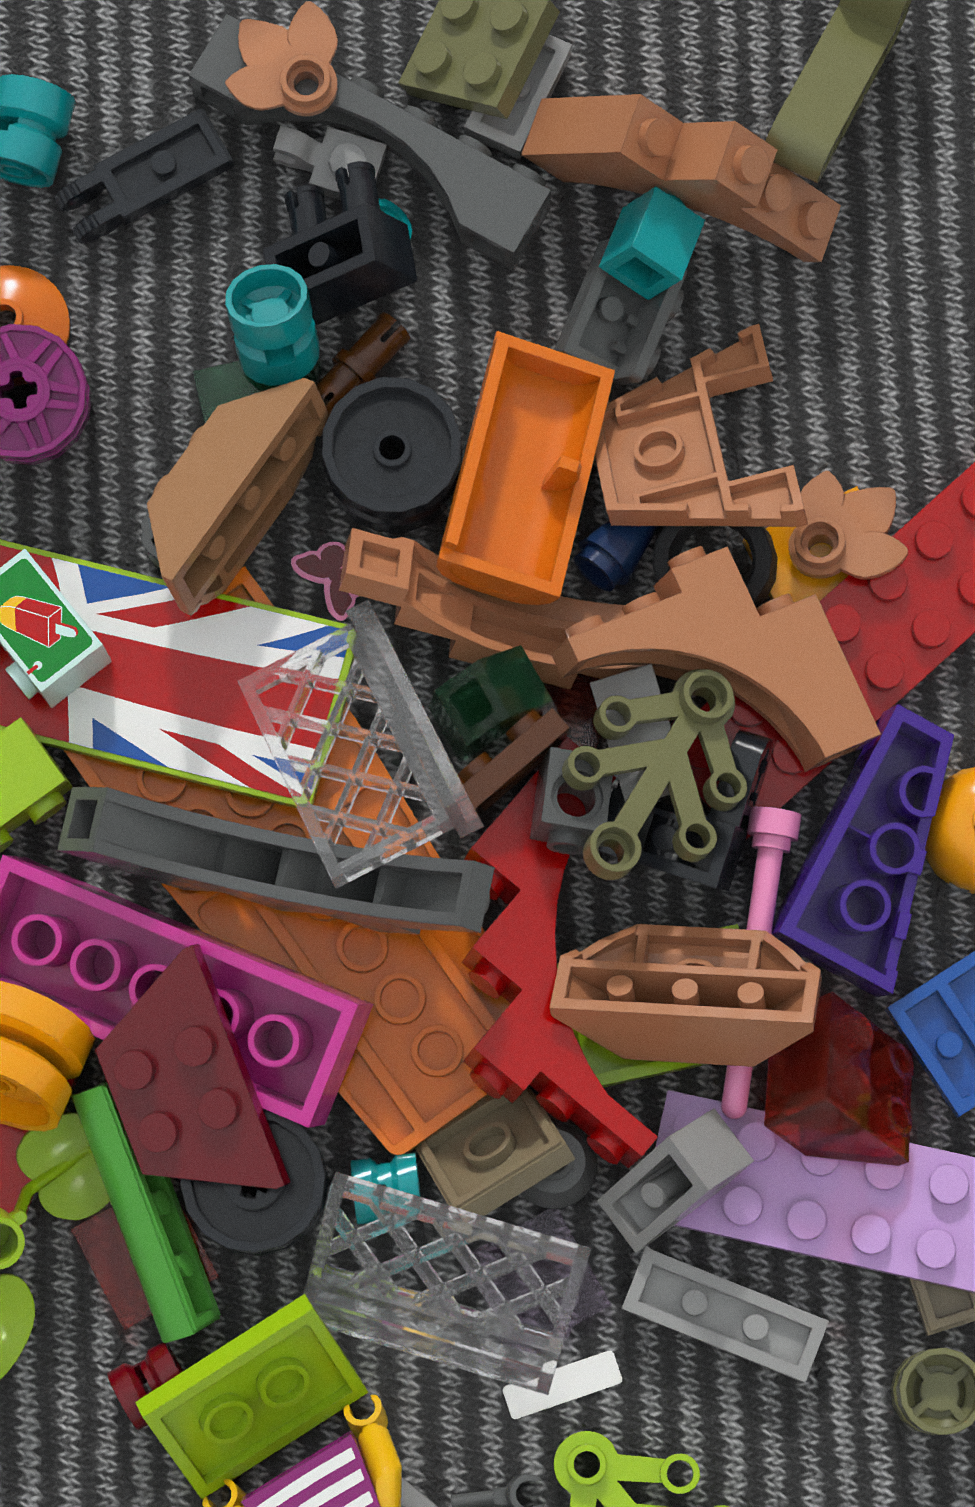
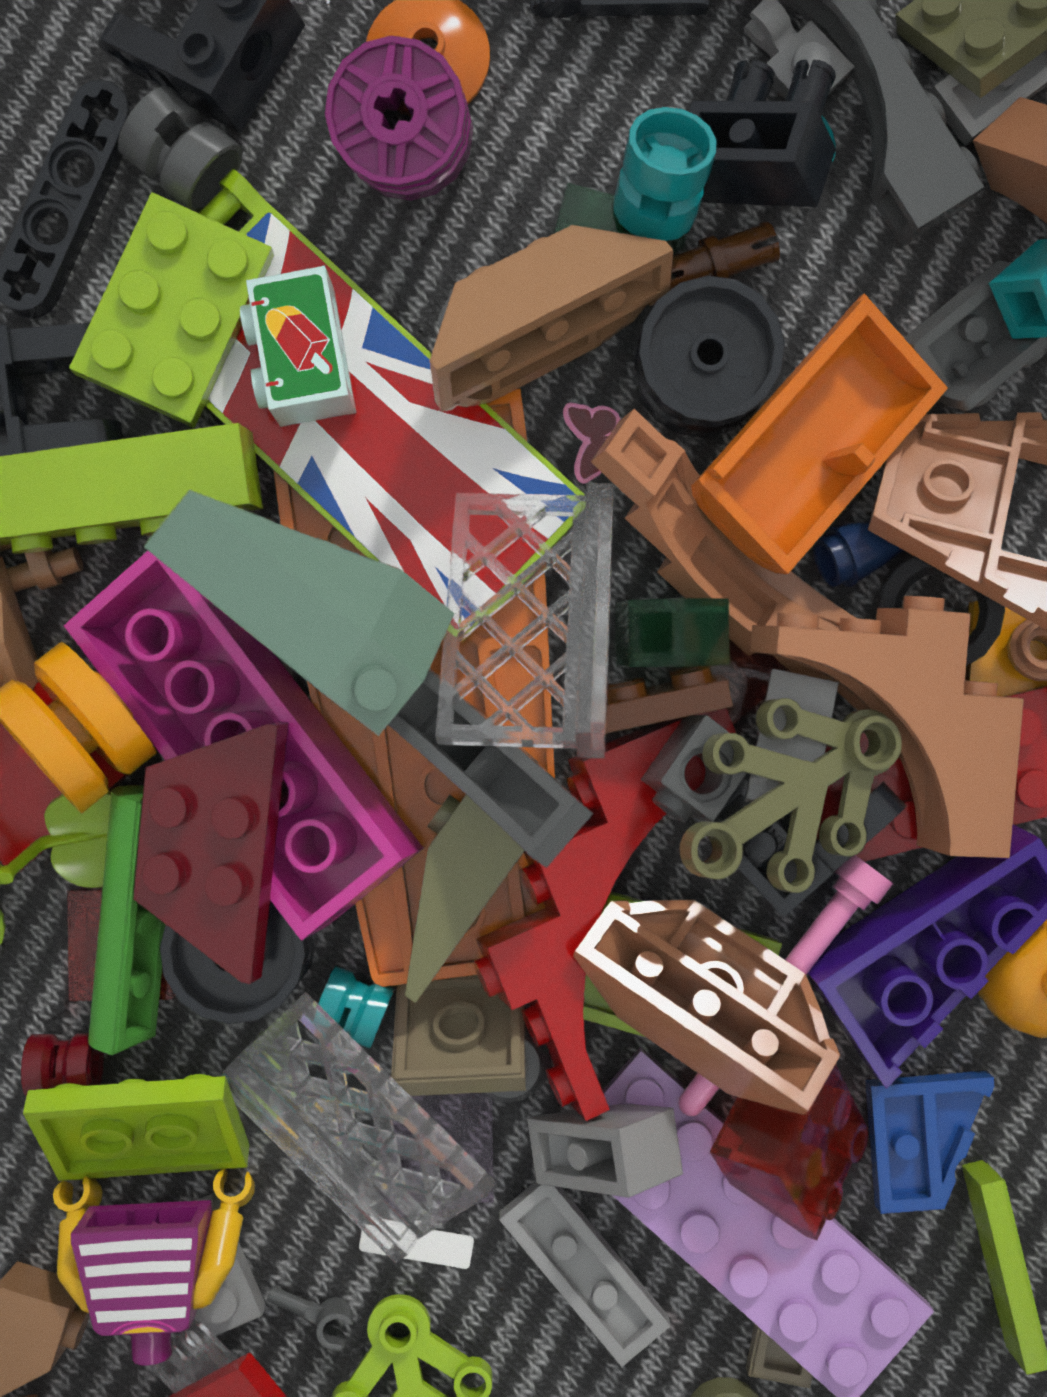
camera: 20 degrees right, 10 degrees up
(183, 824) = (328, 613): none -> sand green wedge
(418, 998) = (459, 879): none -> olive slope

